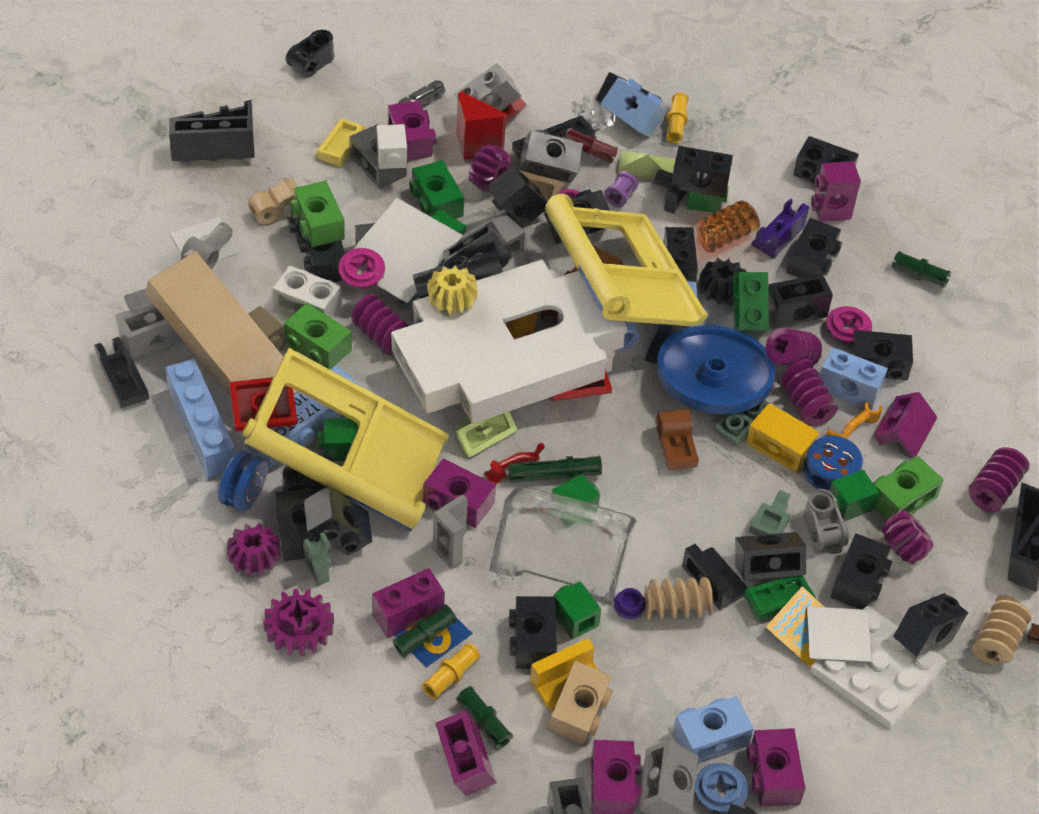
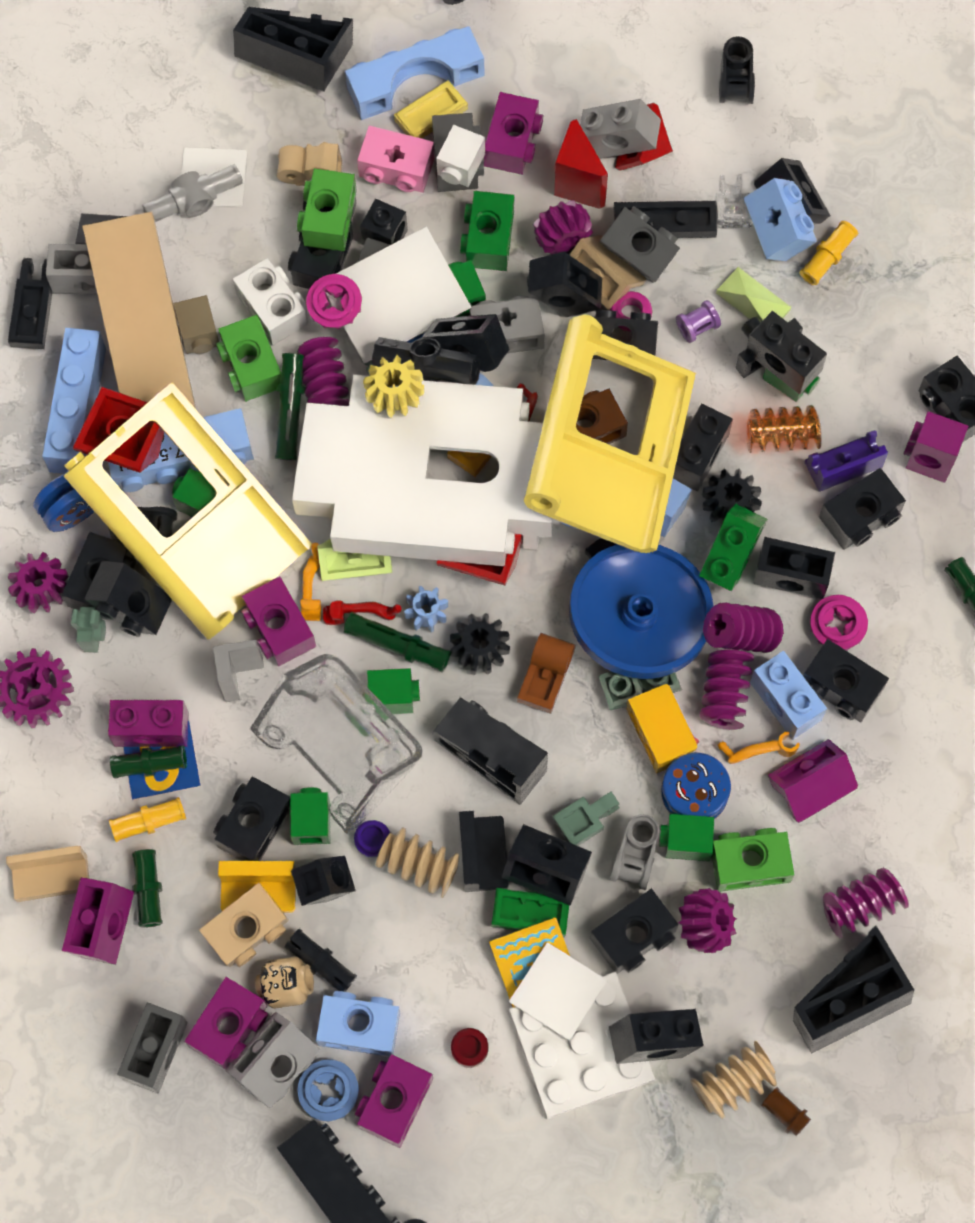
camera: 35 degrees right, 20 degrees up
(290, 138) = (450, 56): none -> light blue arch
(344, 173) = (396, 159): none -> bright pink brick
(358, 211) = (384, 223): none -> black brick
(366, 341) = (291, 364): none -> dark green pin
(398, 743) = (47, 872): none -> tan panel
(426, 93) = (558, 89): dark grey axle -> none
(455, 449) = (310, 607): none -> light orange piece
(539, 39) = (737, 76): none -> black piece
(562, 437) = (426, 598): none -> light blue gear
(593, 147) = (699, 248): dark red axle -> none
(616, 442) = (479, 630): none -> black gear
(618, 642) = (323, 880): none -> black brick
(639, 725) = (285, 982): none -> tan head
(651, 702) = (320, 961): none -> black pin
(679, 501) = (492, 749): none -> black wedge
(801, 708) = (469, 1047): none -> dark red tile

